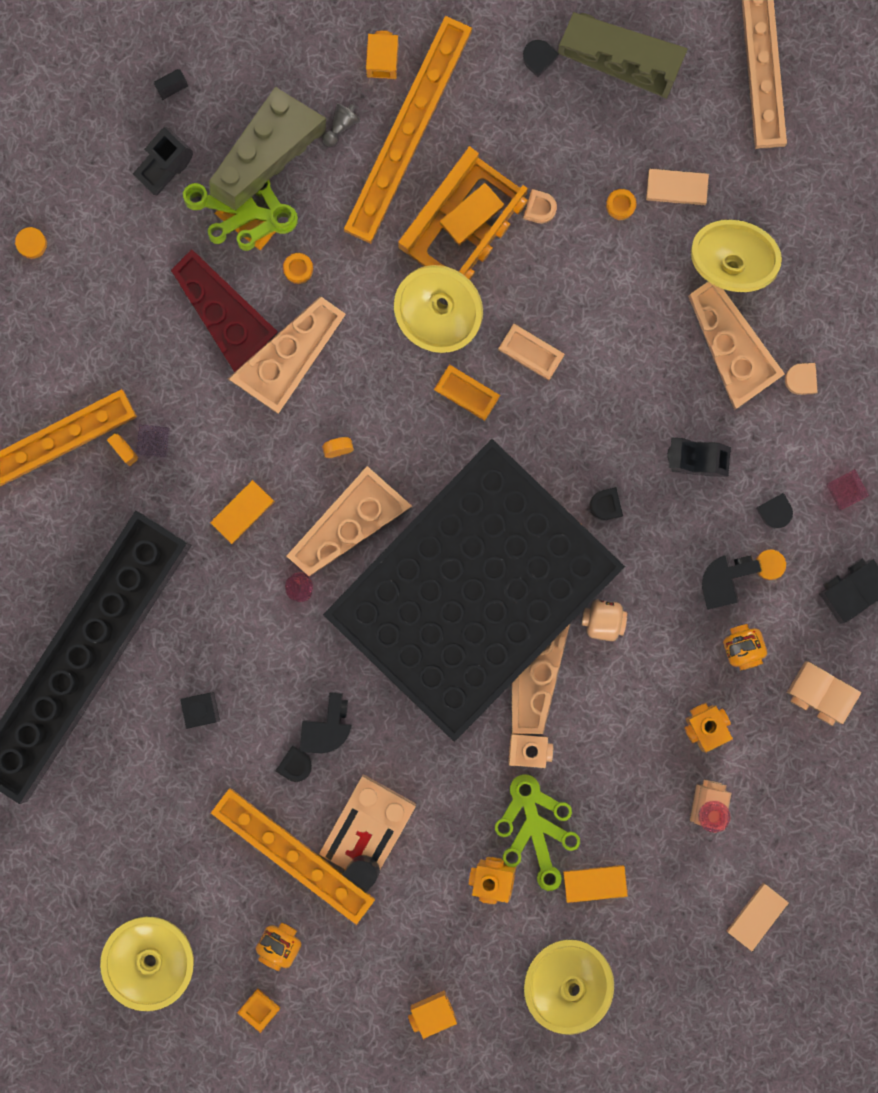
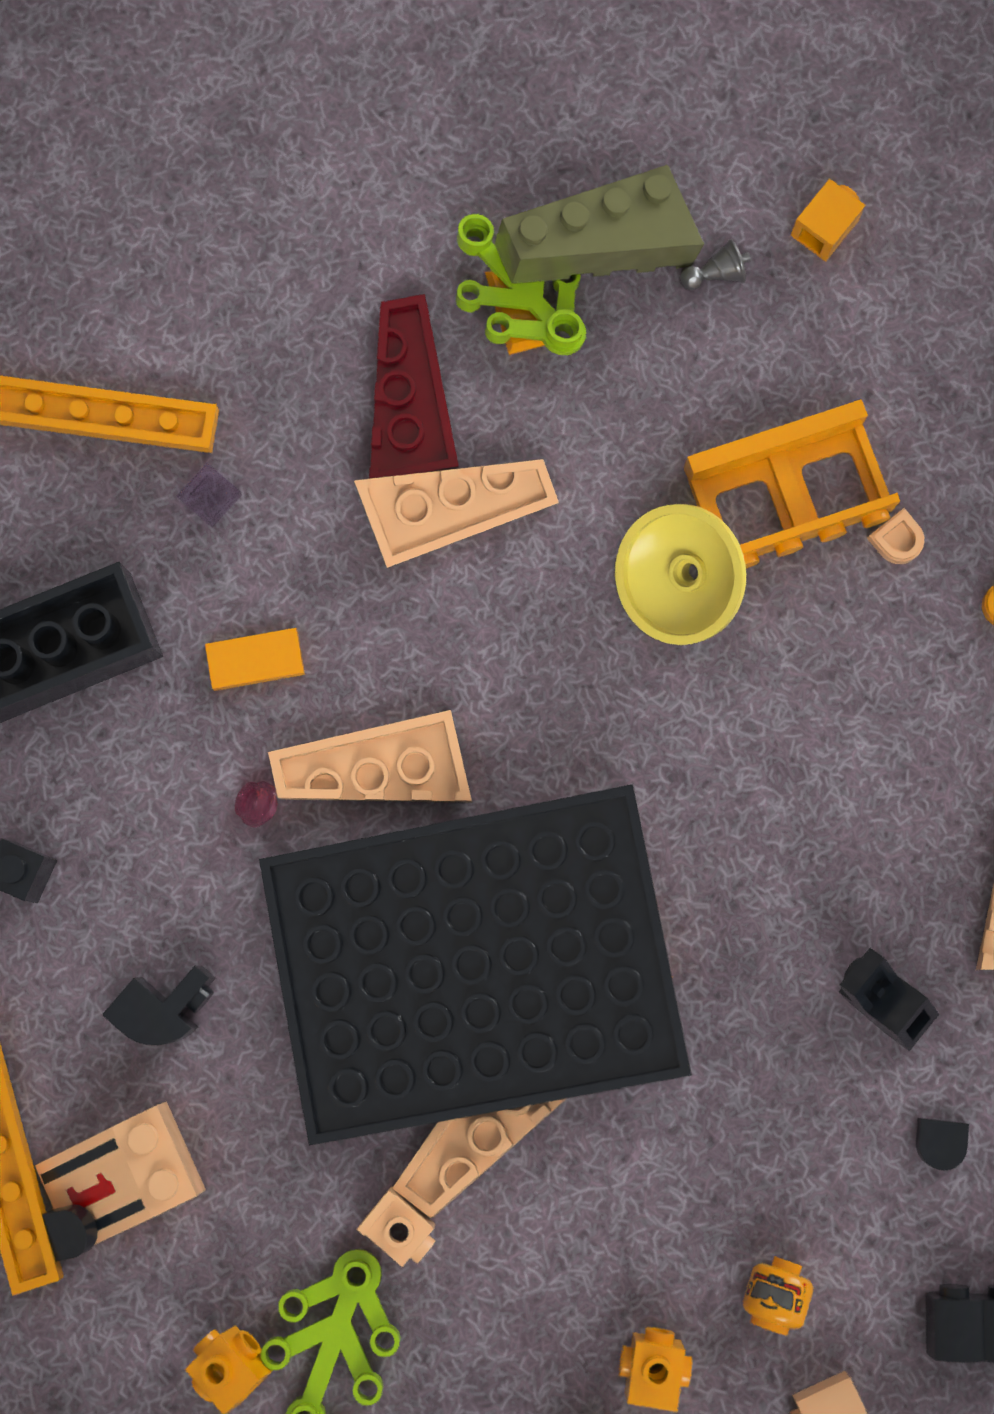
camera: 40 degrees right, 5 degrees down
(31, 242) = (237, 158): light orange tile -> none
(123, 449) = (163, 478): light orange tile -> none
(166, 158) = (472, 165): black brick -> none
(170, 84) = (542, 82): black tile -> none
(295, 765) = (87, 1029): black tile -> none
(298, 268) = (540, 407): light orange tile -> none
(337, 447) = (430, 661): light orange tile -> none
(408, 129) = (796, 331): light orange plate -> none
(467, 392) = (643, 706): light orange tile -> none
(472, 214) = (806, 486): light orange tile -> none
(531, 352) = (761, 711): light nougat tile -> none
(604, 620) = (616, 1125): light nougat head -> none
(606, 505) = (723, 975): black tile -> none
(718, 579) = (804, 1178): black brick -> none
(772, 564) = (886, 1207): light orange tile -> none

